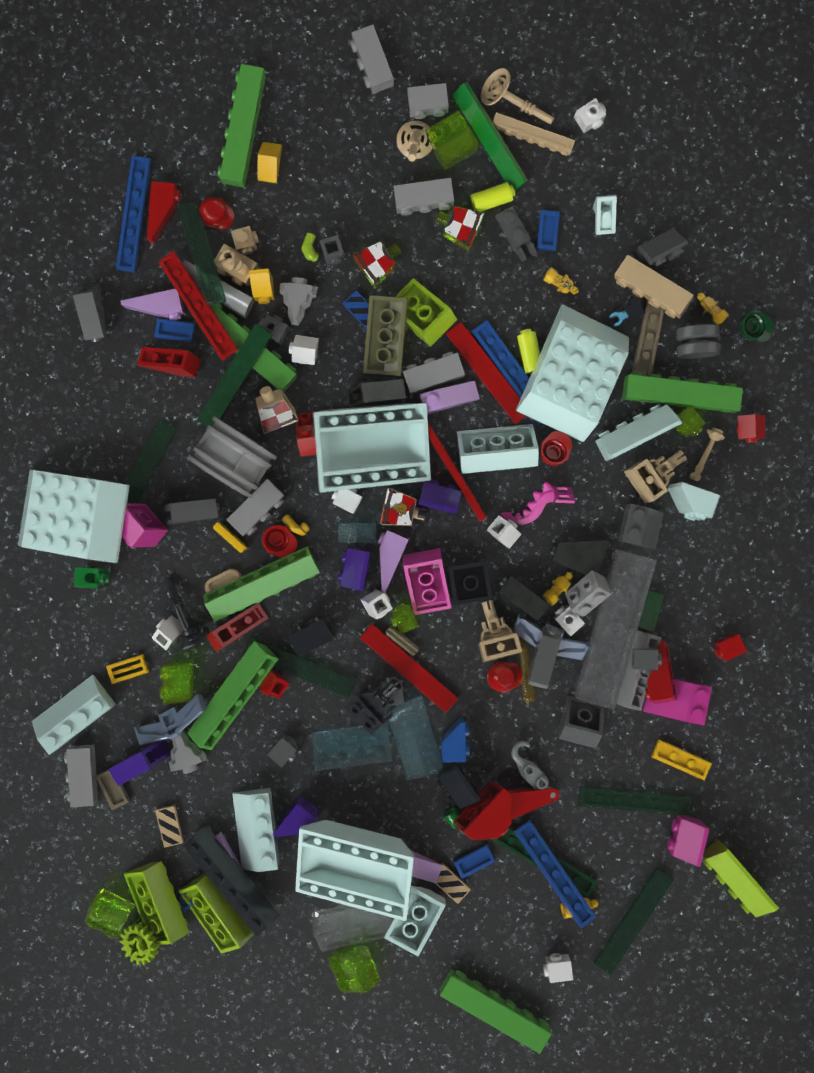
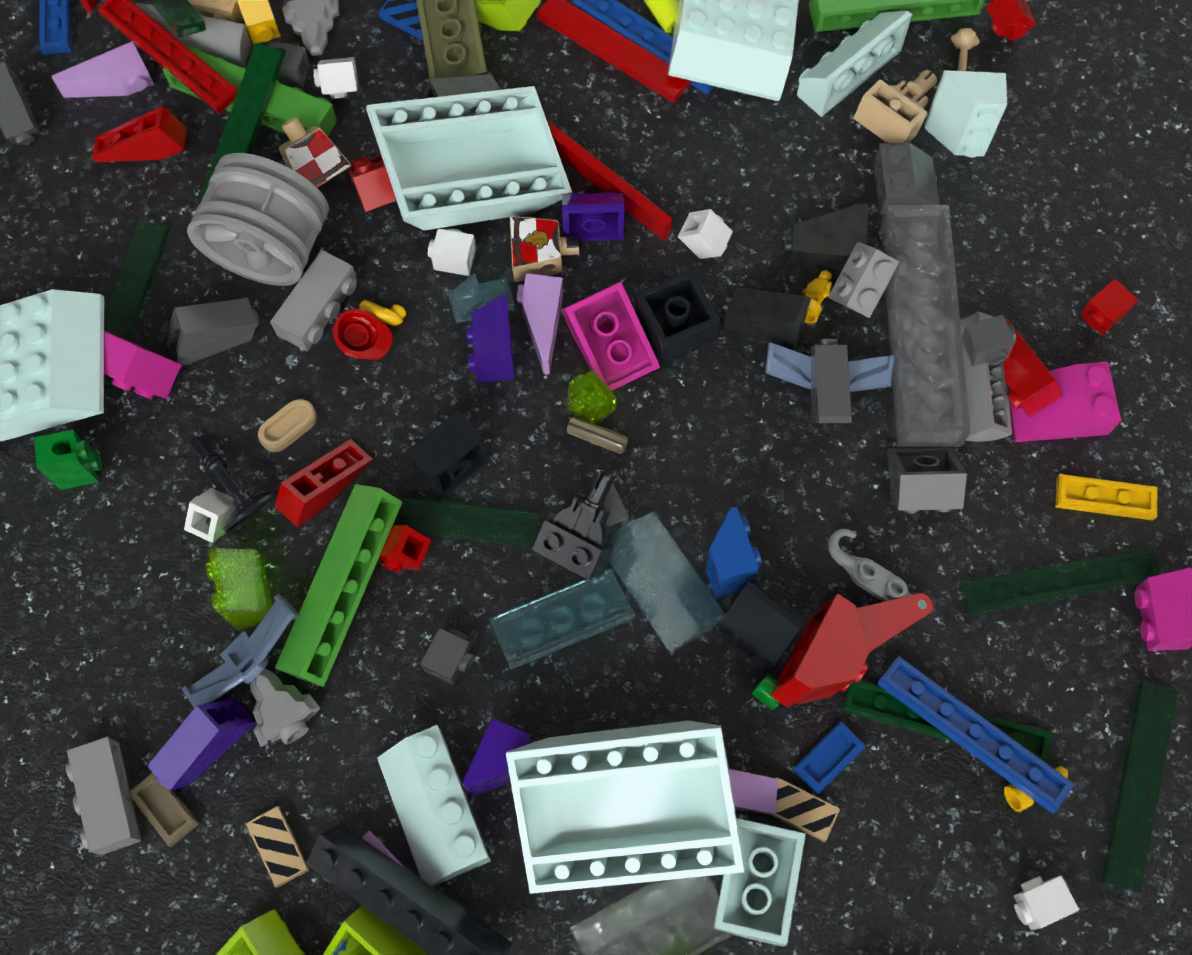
camera: 20 degrees left, 20 degrees down
(72, 714) = (72, 699): light aqua slope -> none
(143, 664) = (160, 609): yellow tile -> none
(175, 330) = (136, 103): blue tile -> none
(230, 537) = (283, 352): yellow tile -> none
(261, 584) = (347, 404): bright green brick -> none
(376, 604) = (540, 384): white brick -> none
(409, 668) = (630, 477): red tile -> none
(433, 373) = (537, 60): light grey brick -> none
(450, 397) = (567, 86): lavender slope -> none
(497, 448) = (660, 134): light aqua slope -> none
(498, 639) = (746, 387): tan brick -> none
(504, 676) = (777, 447): red hat -> none
(528, 691) = (822, 455): clear yellow pin -> none
(548, 495) = (746, 181): dark pink piece -> none
(555, 448) = (742, 112): red hat -> none
(568, 620) = (850, 330): white brick -> none
(651, 610) = (969, 287): dark green slope -> none
(690, 421) = (923, 30): clear neon green brick -> none

